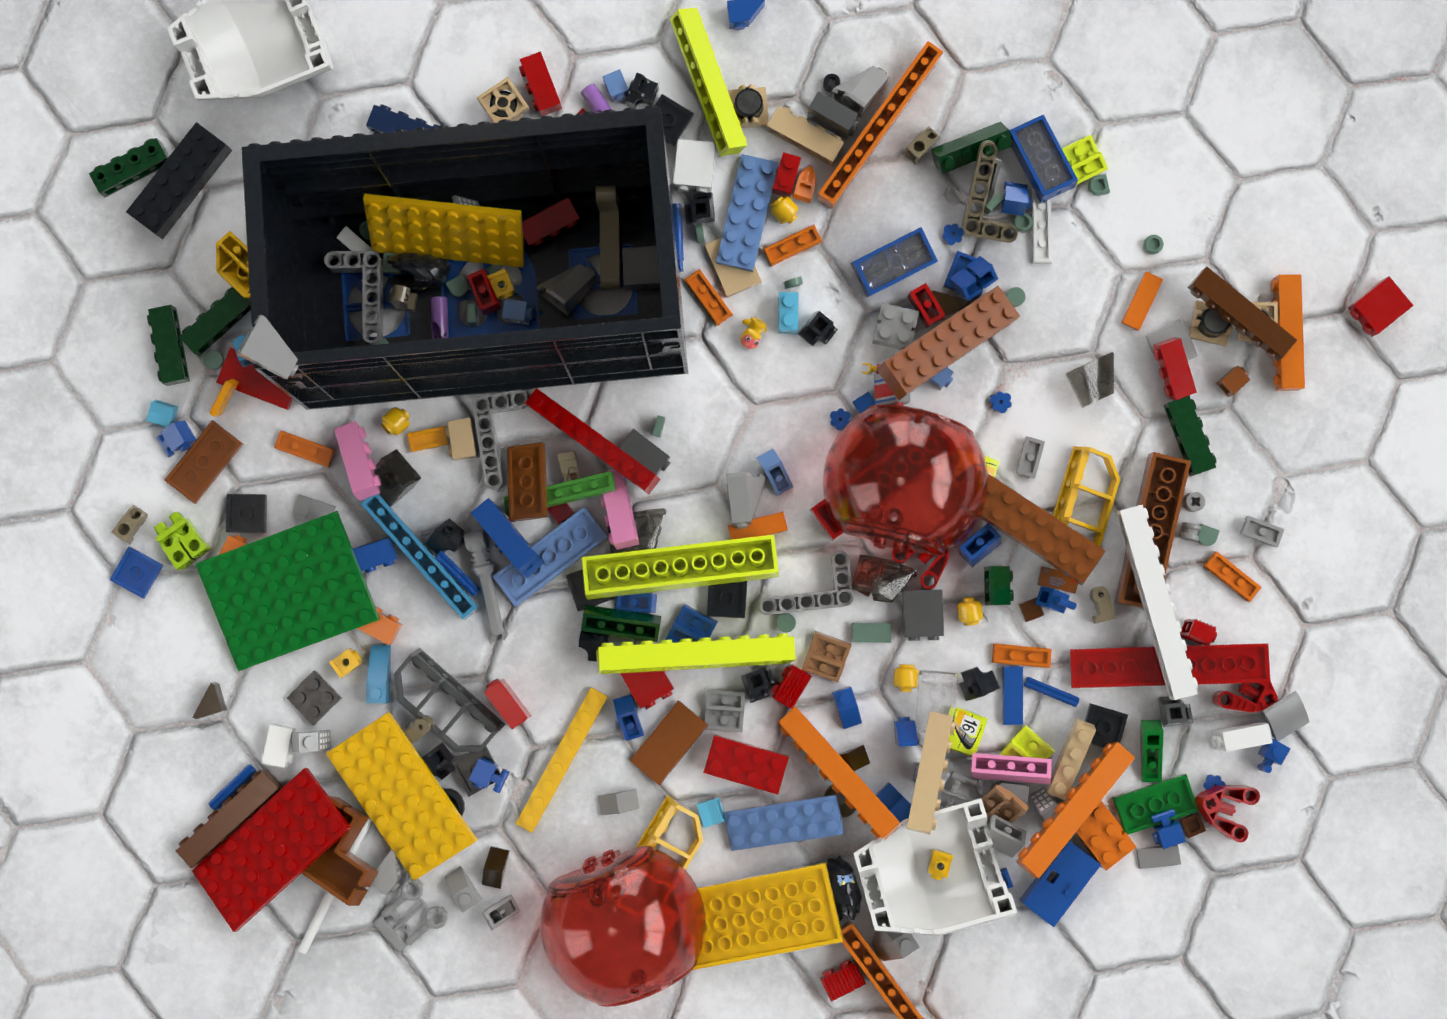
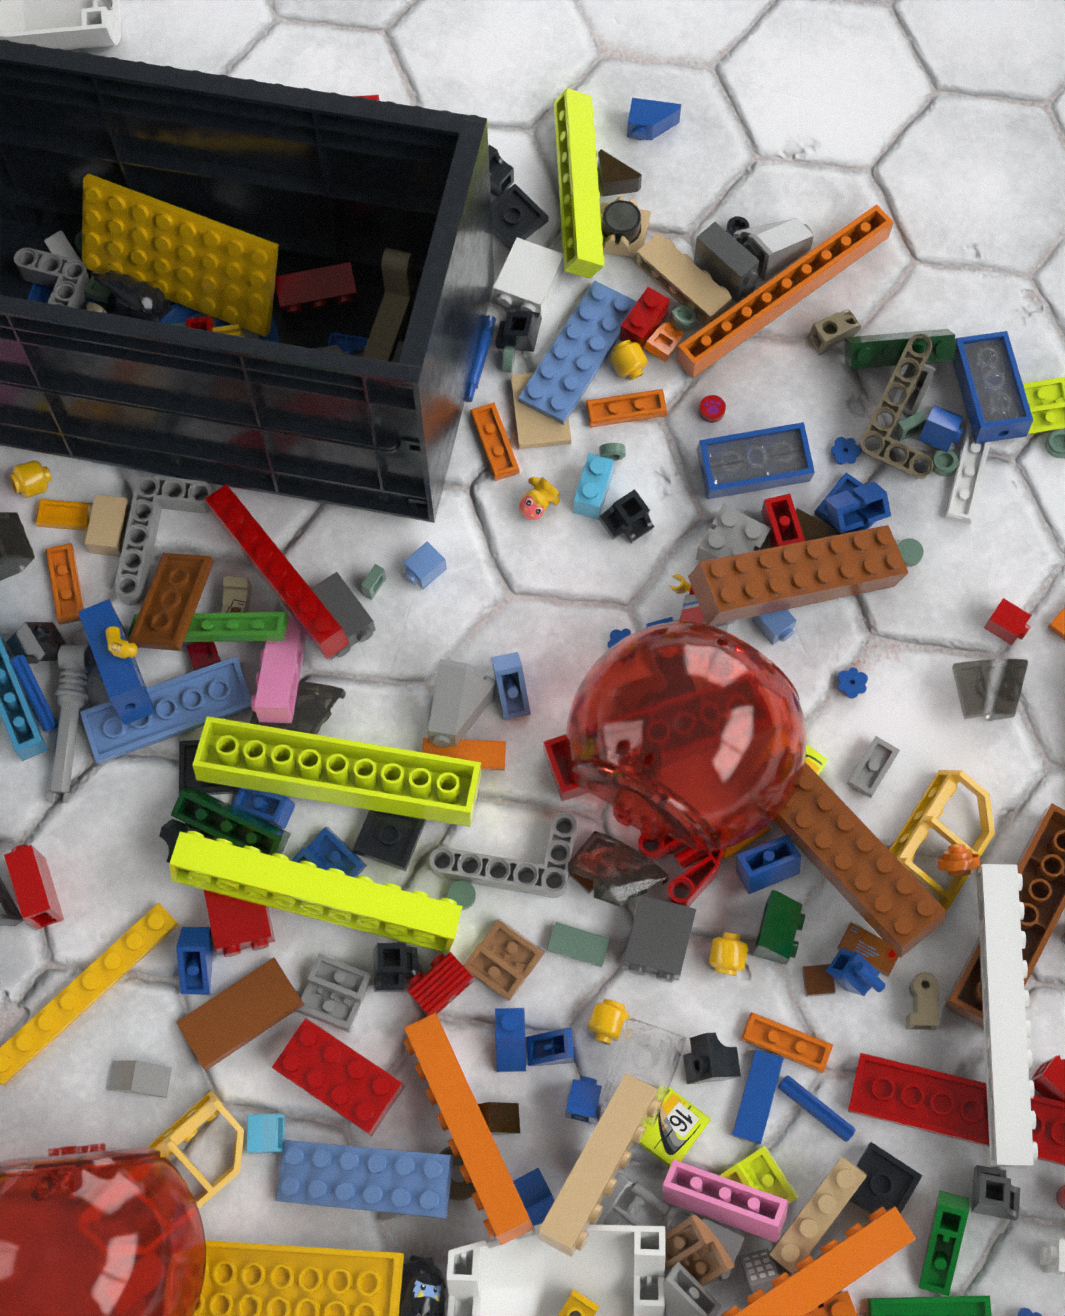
camera: 20 degrees right, 15 degrees down
(447, 488) = (65, 583): none -> orange tile
(510, 532) = (118, 646): none -> yellow arm
(689, 404) = (424, 565): none -> medium blue brick
(732, 66) = (617, 176): none -> dark brown slope
(812, 165) = (683, 318): none -> sand green tile
(852, 228) = (712, 408): none -> red tile
(874, 705) = (550, 1048): none -> blue slope
(1094, 329) = (1008, 622): none -> red brick
(1102, 508) = (958, 860): none -> orange plate

